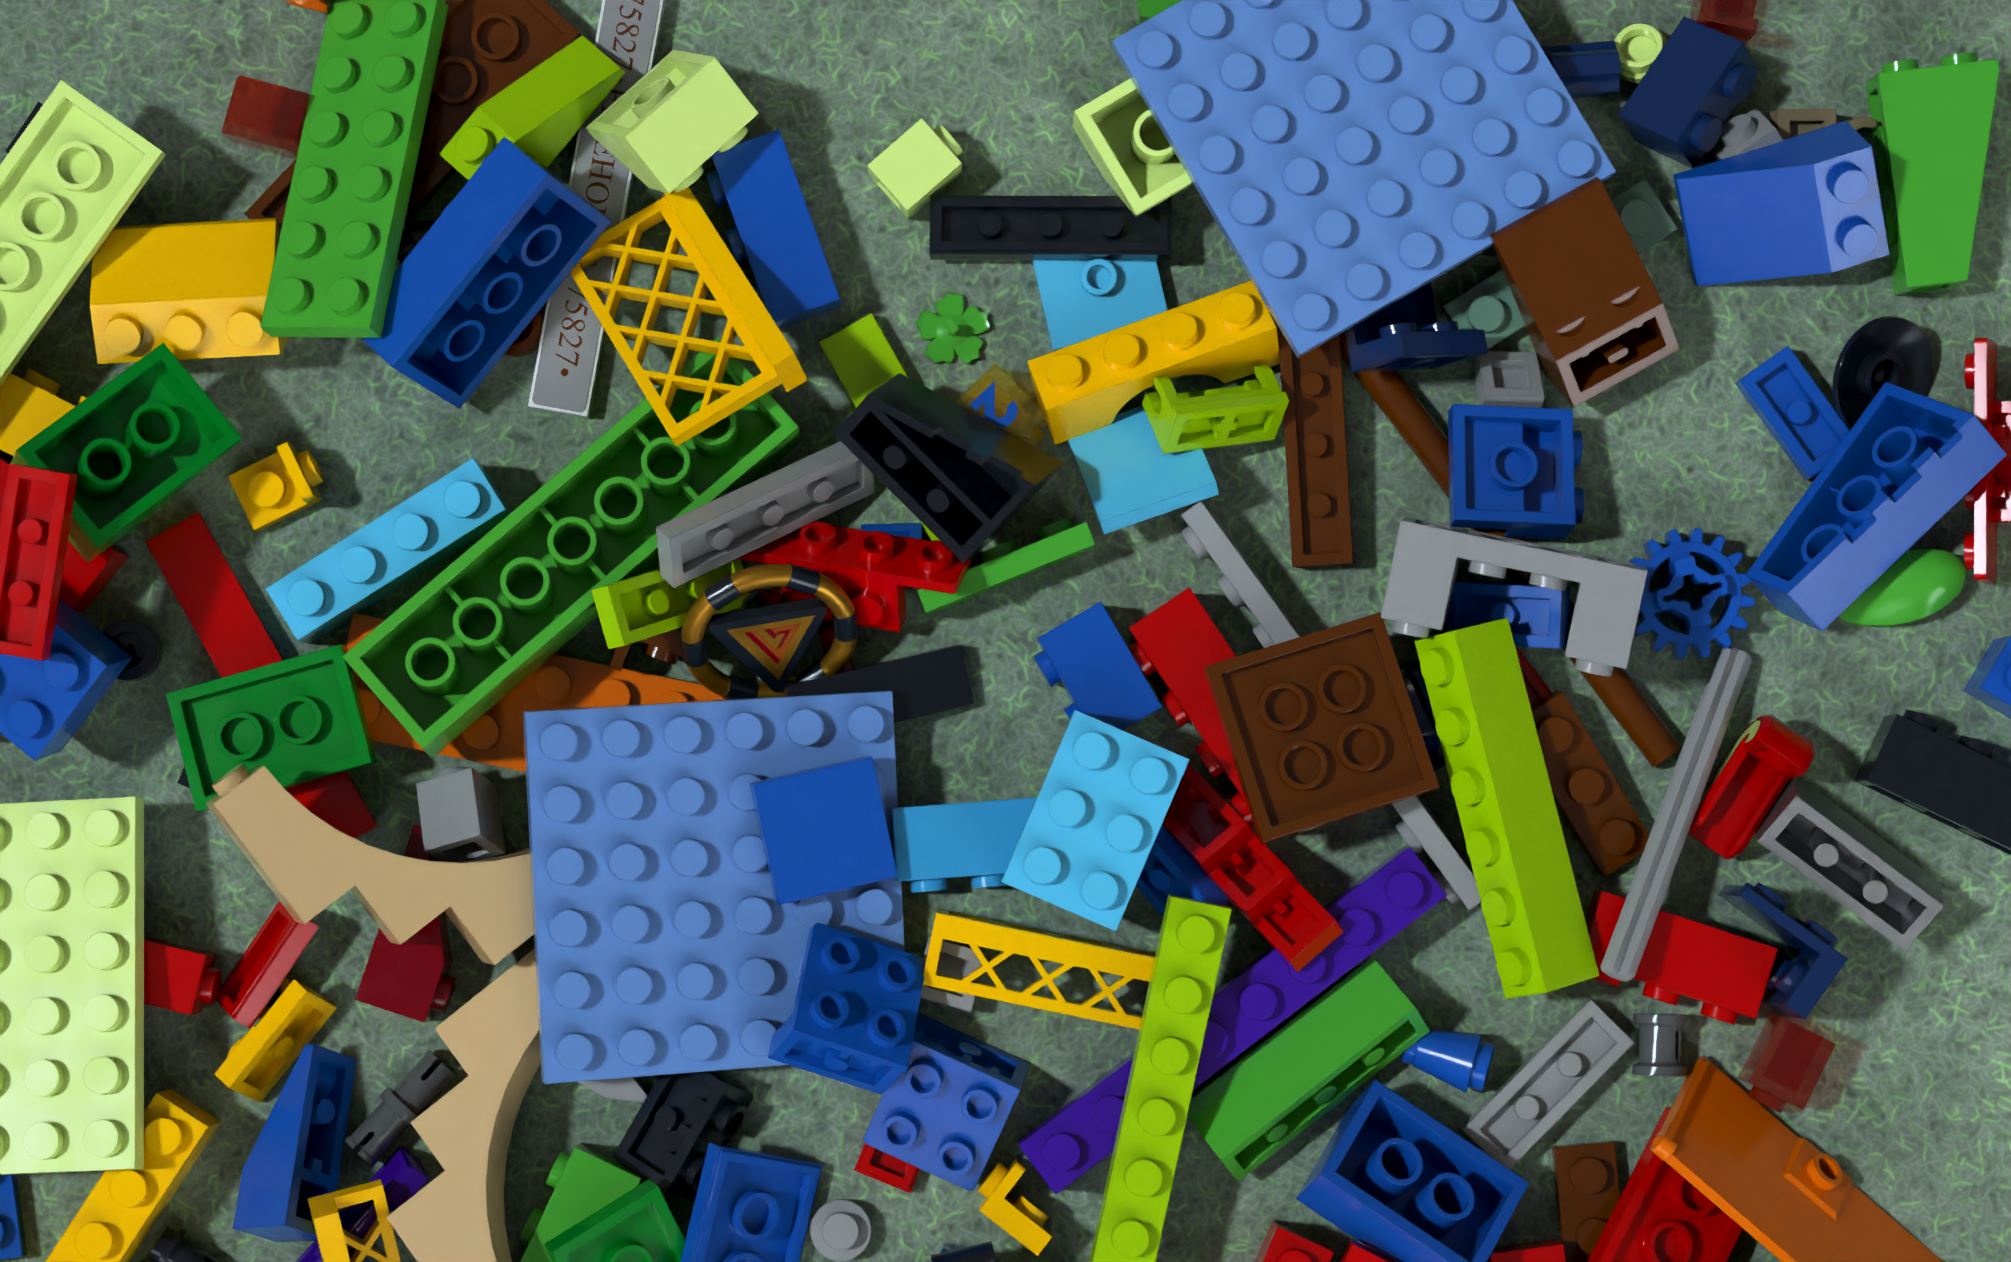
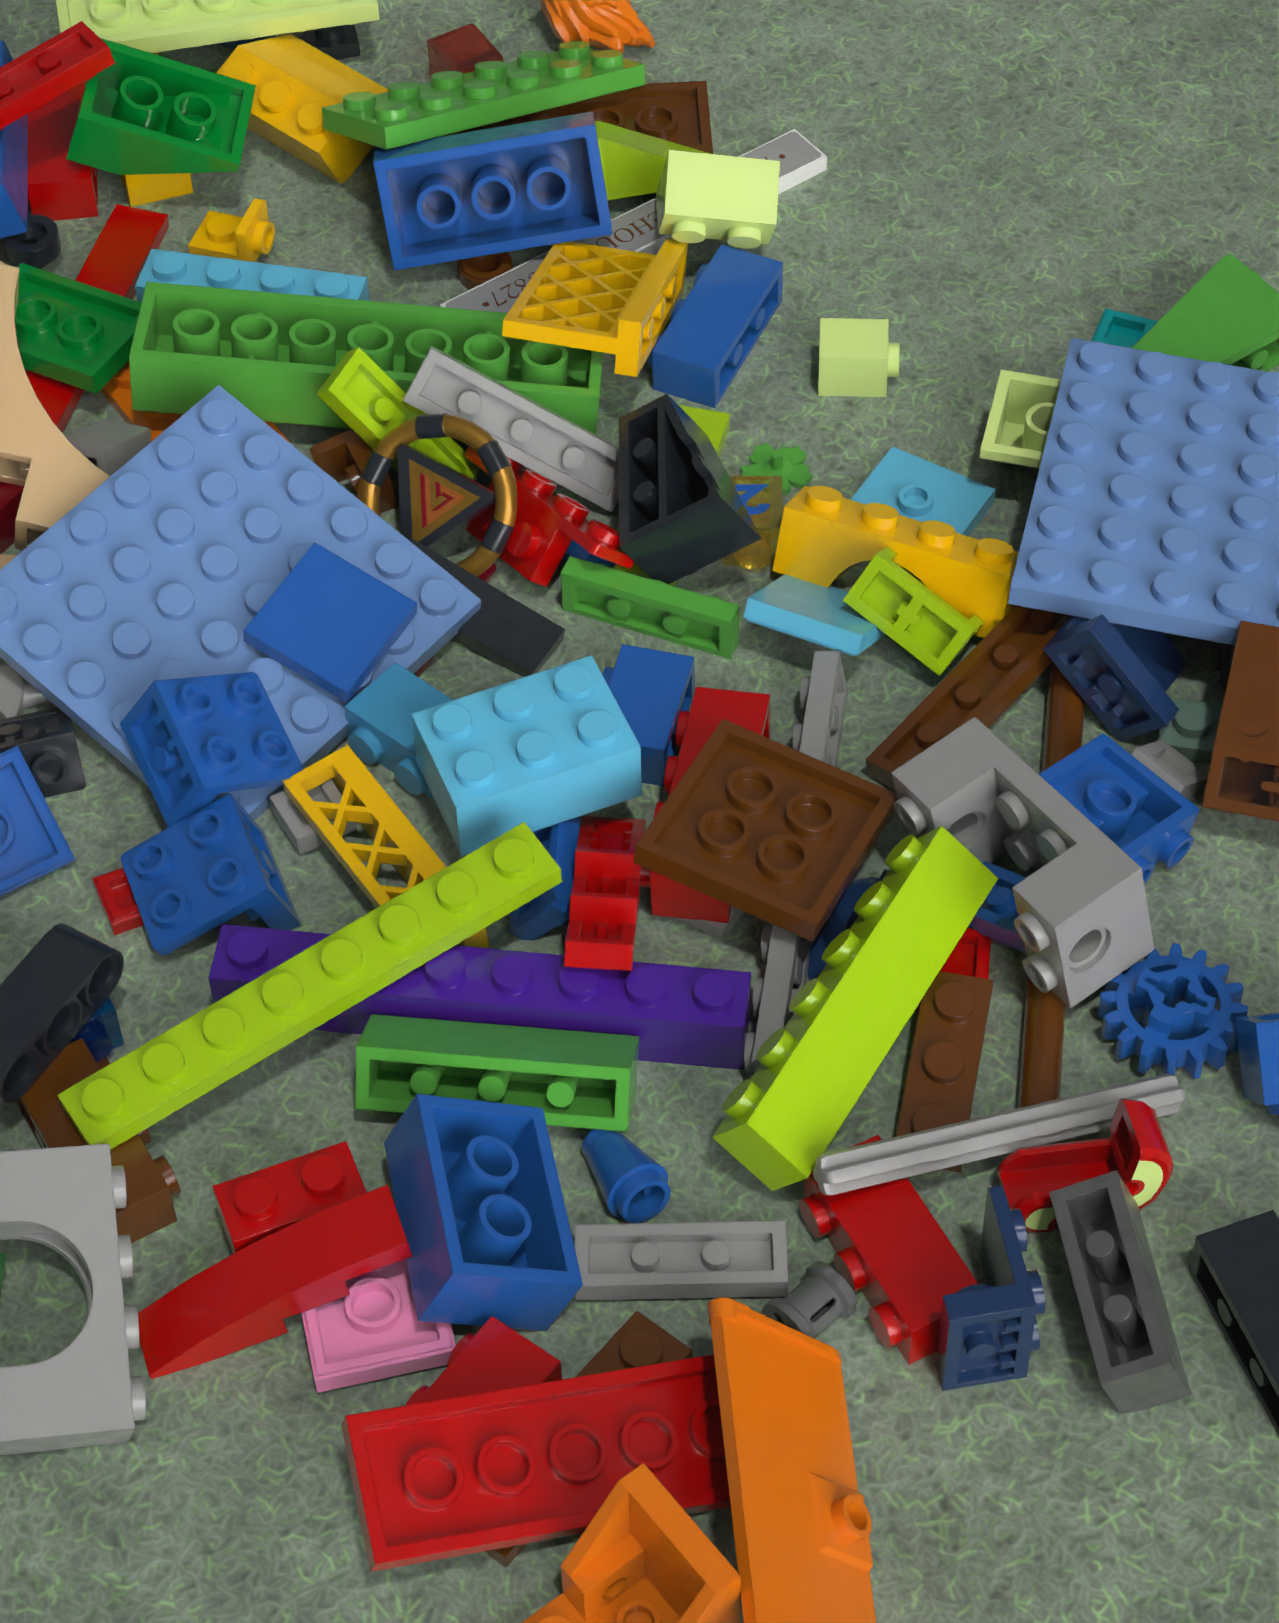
camera: 50 degrees right, 35 degrees down
(840, 1230) = (34, 908): light grey plate -> none
(1019, 1219) = (169, 978): yellow bracket -> none
(1047, 228) = (914, 449): black tile -> none
(1785, 1064) = (904, 1409): clear red brick -> none

